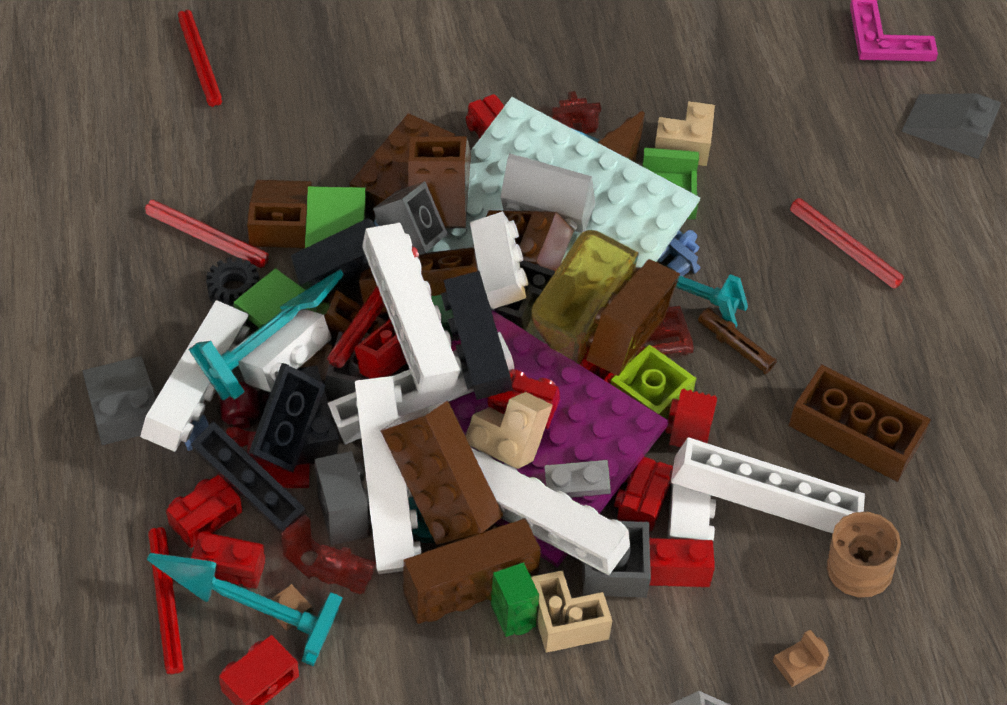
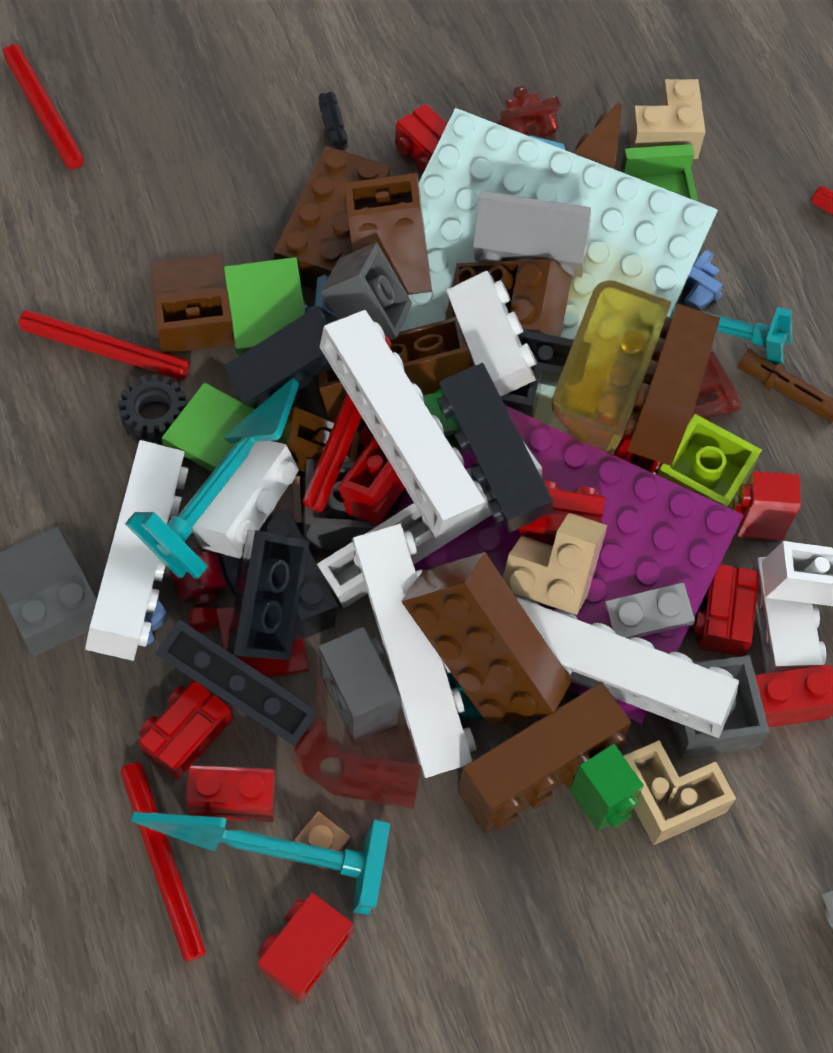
camera: 10 degrees left, 10 degrees up
(421, 98) = (333, 121): none -> black axle

